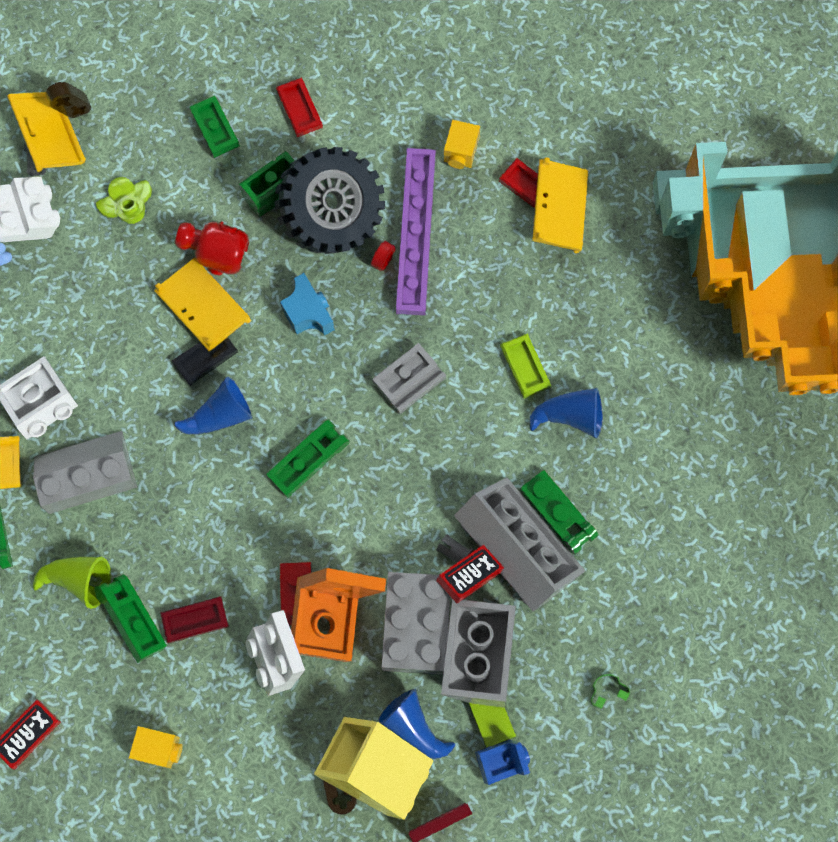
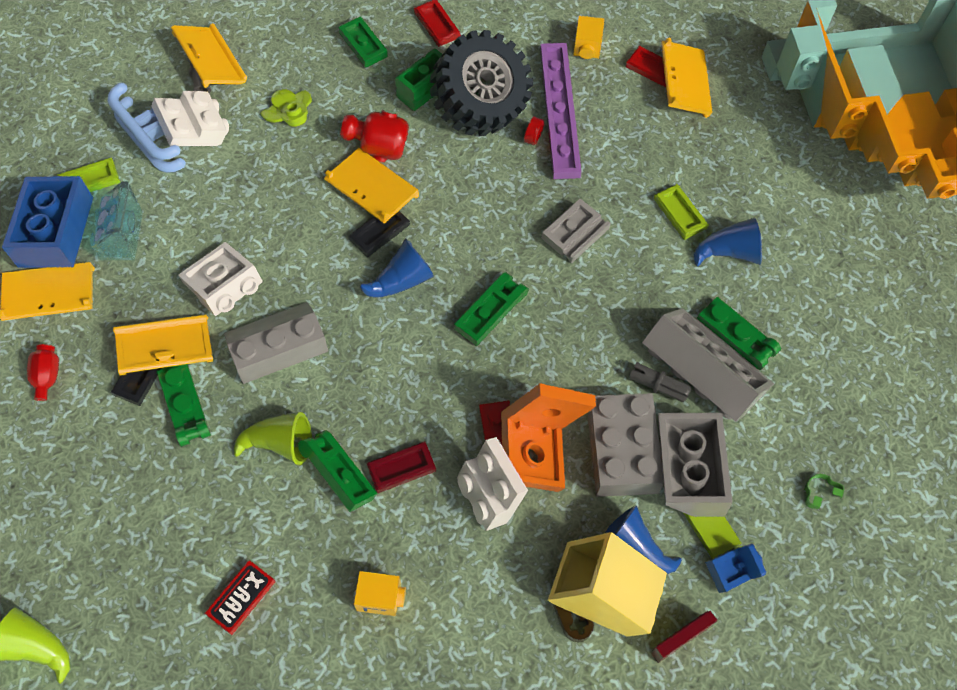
camera: 10 degrees left, 10 degrees down
(68, 99) = (224, 30): dark brown beam -> none
(307, 308) = (471, 179): dark azure brick -> none
(470, 574) = (670, 389): tile -> none

